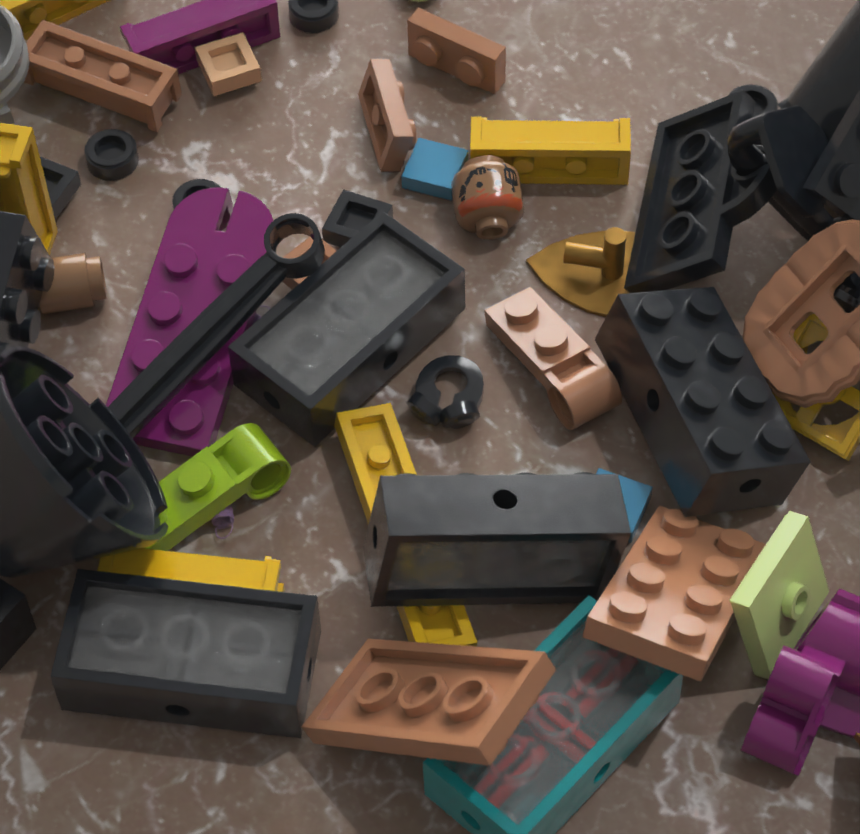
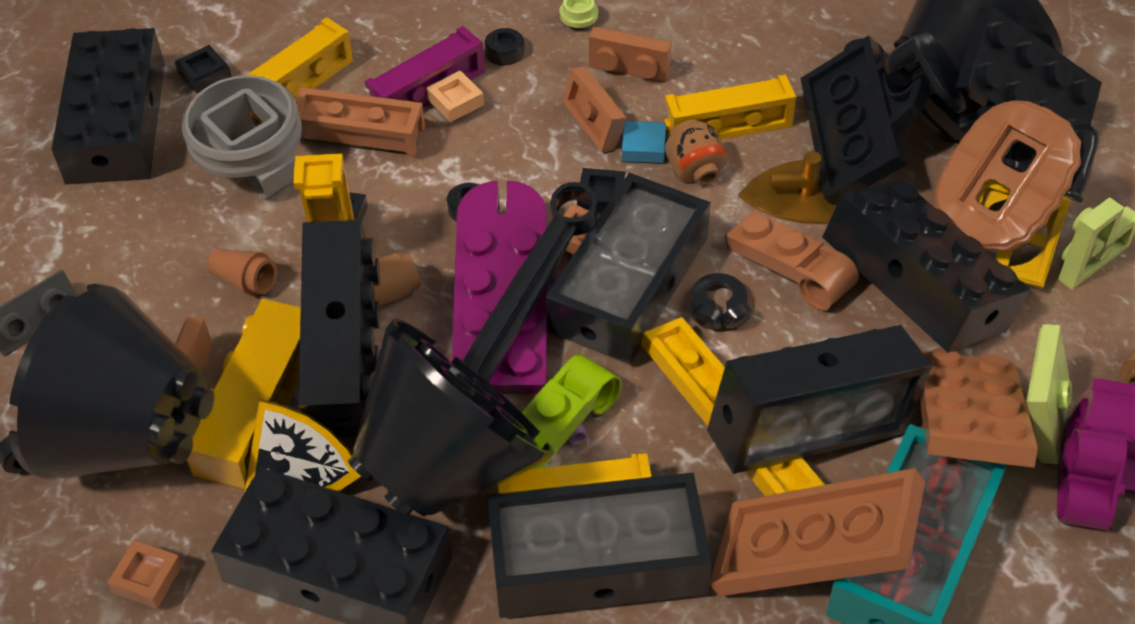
camera: 15 degrees left, 5 degrees down
(111, 154) = (384, 179): black tile -> none

